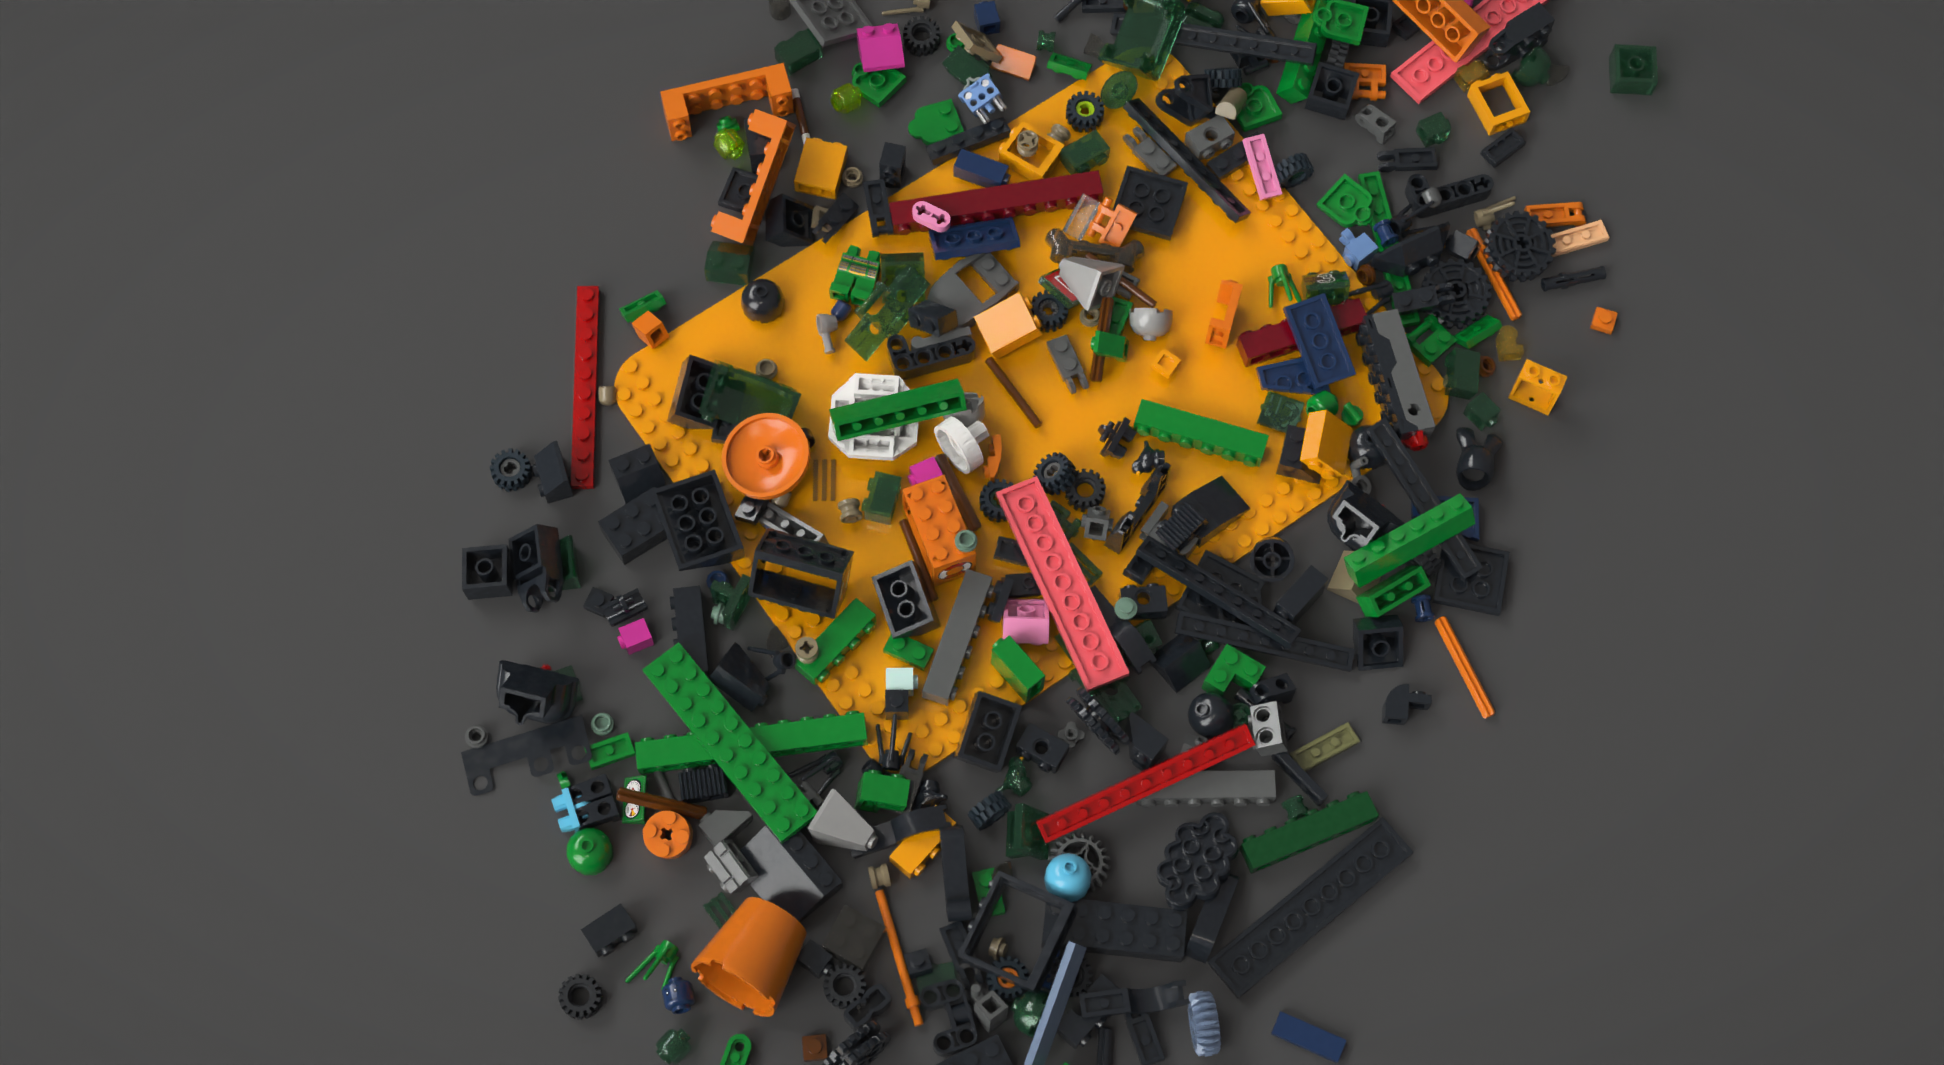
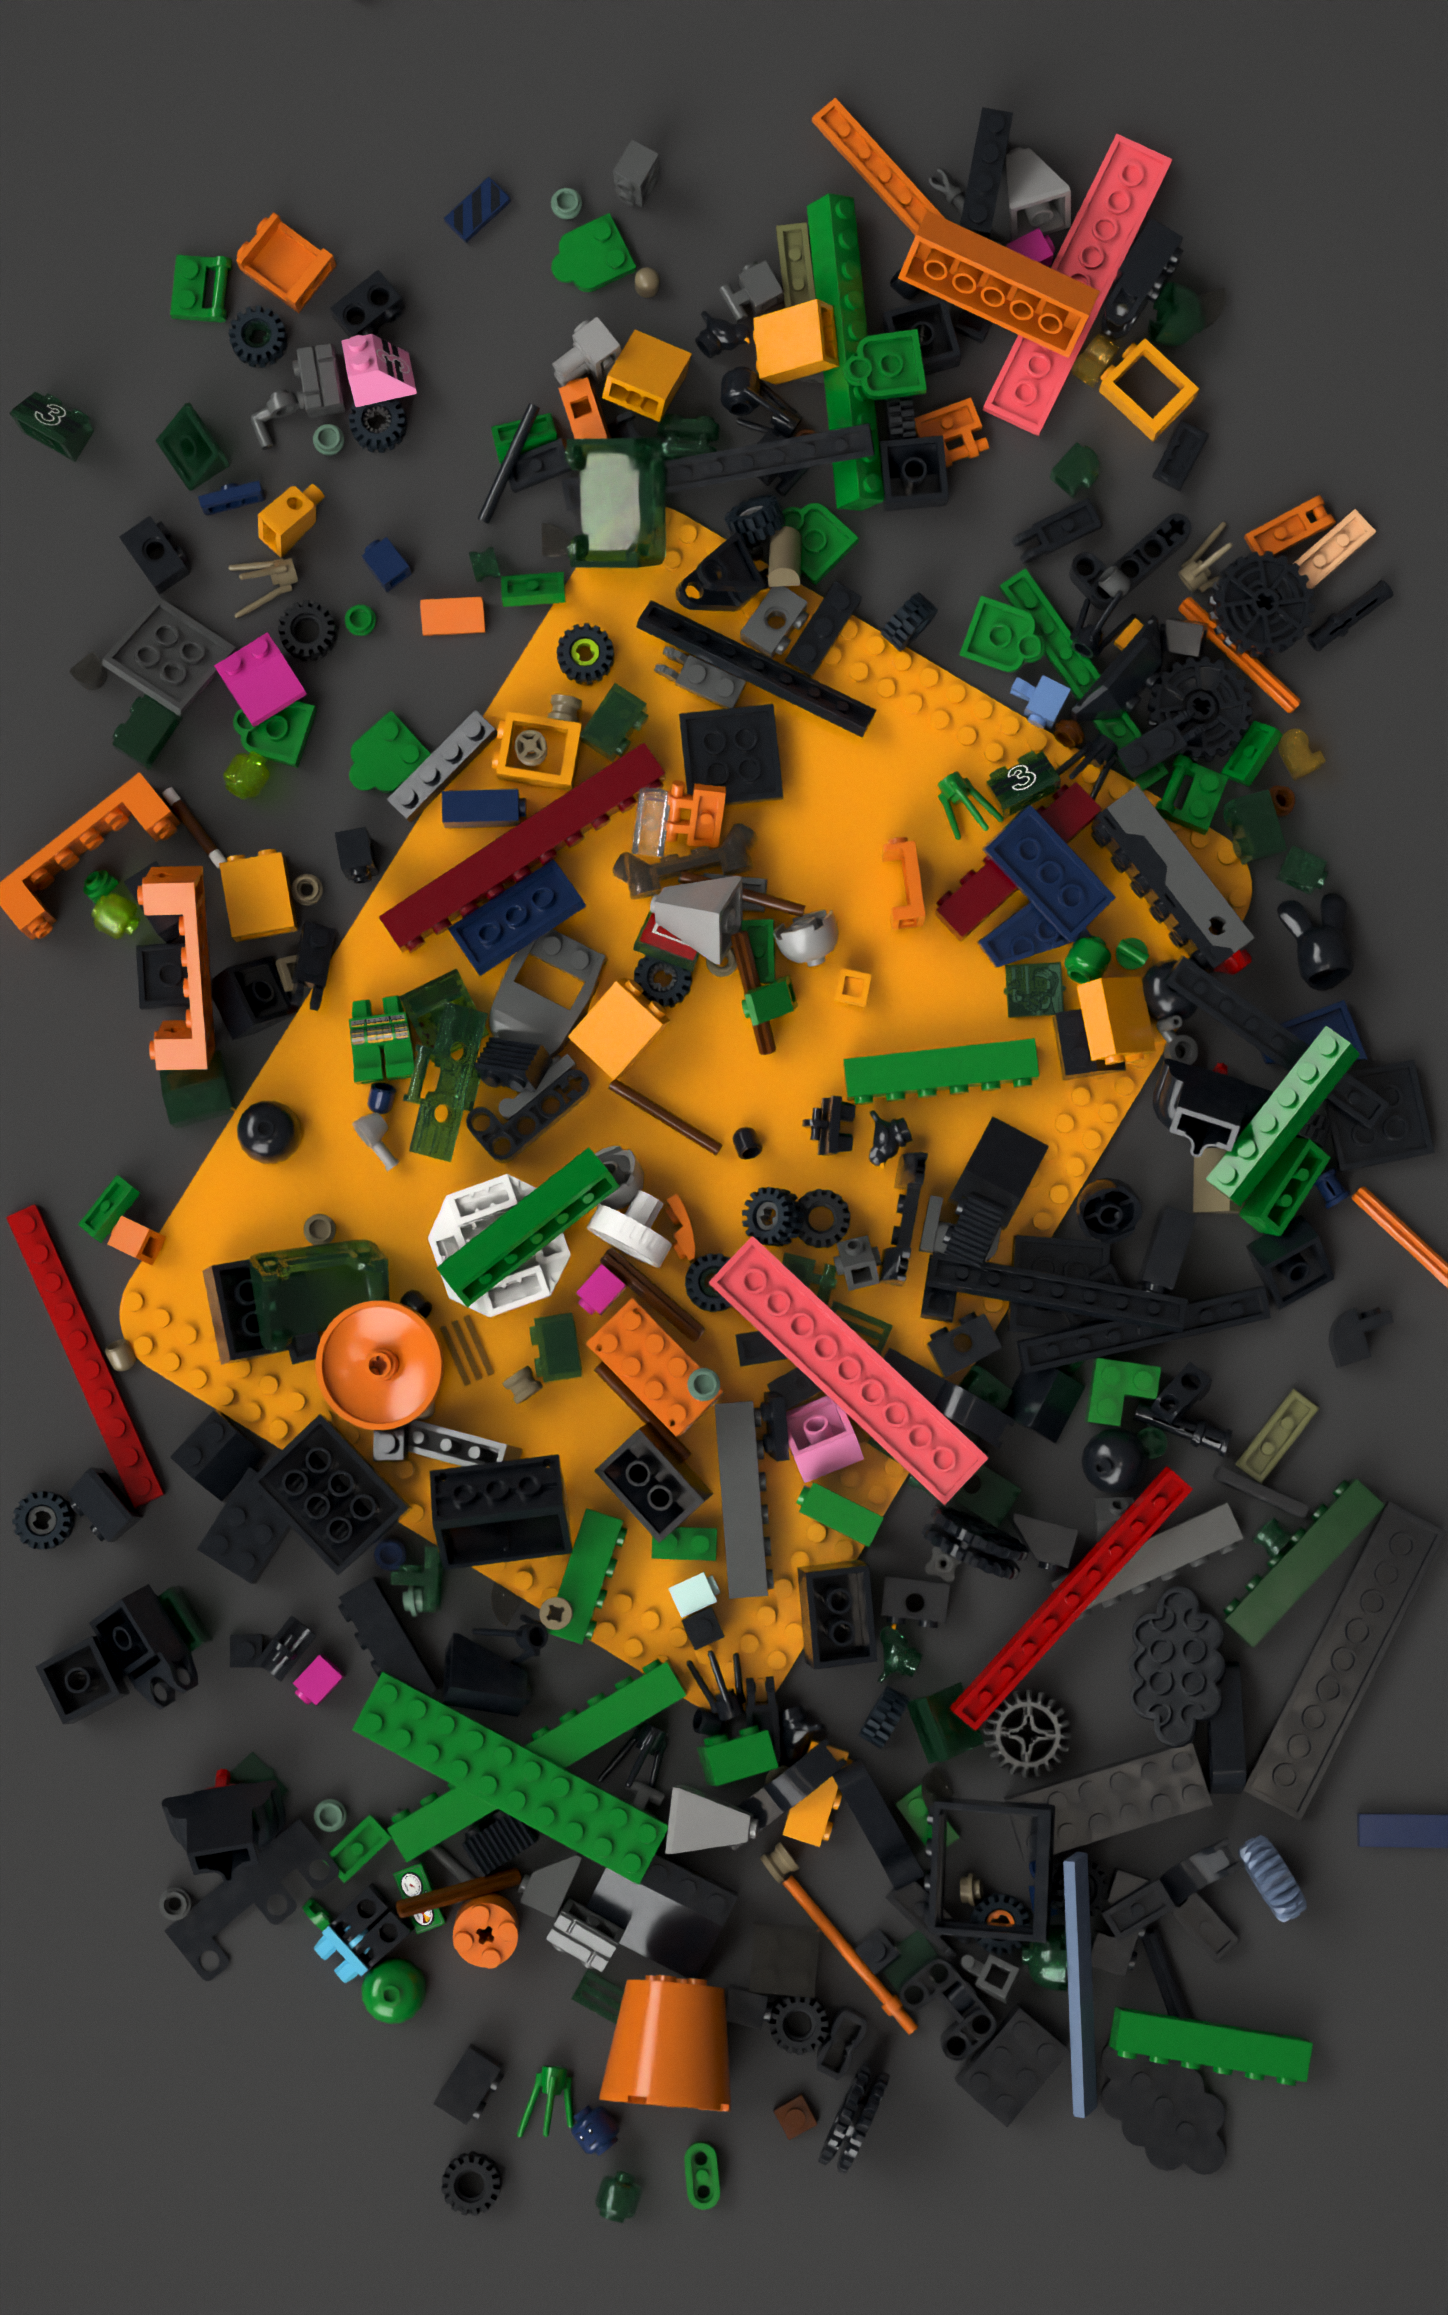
camera: 15 degrees left, 15 degrees up
(878, 207) = (363, 924): black plate -> none
(932, 215) = (447, 907): bright pink beam -> none
(964, 65) = (395, 658): clear green brick -> none
(976, 42) = (390, 614): dark tan plate -> none
(981, 96) = (424, 697): medium blue piece -> none
(1058, 428) = (747, 1143): none -> black piece
(1067, 362) = (718, 1041): dark grey hinge -> none
(1068, 877) = (1024, 1768): medium azure cylinder -> none
(1119, 89) = (610, 598): clear green dish -> none
(1125, 608) = (947, 1371): sand green plate -> none
(1262, 167) = (865, 636): bright pink plate -> none
(1273, 728) = (1205, 1448): dark grey brick -> none
(1376, 123) = (992, 493): dark grey leg -> none
(1385, 233) = (1073, 663): dark blue bush -> none
(1528, 386) = (1376, 805): light orange window -> none
(1603, 320) = (1413, 660): orange plate -> none
(1633, 69) = (1316, 258): clear green brick -> none

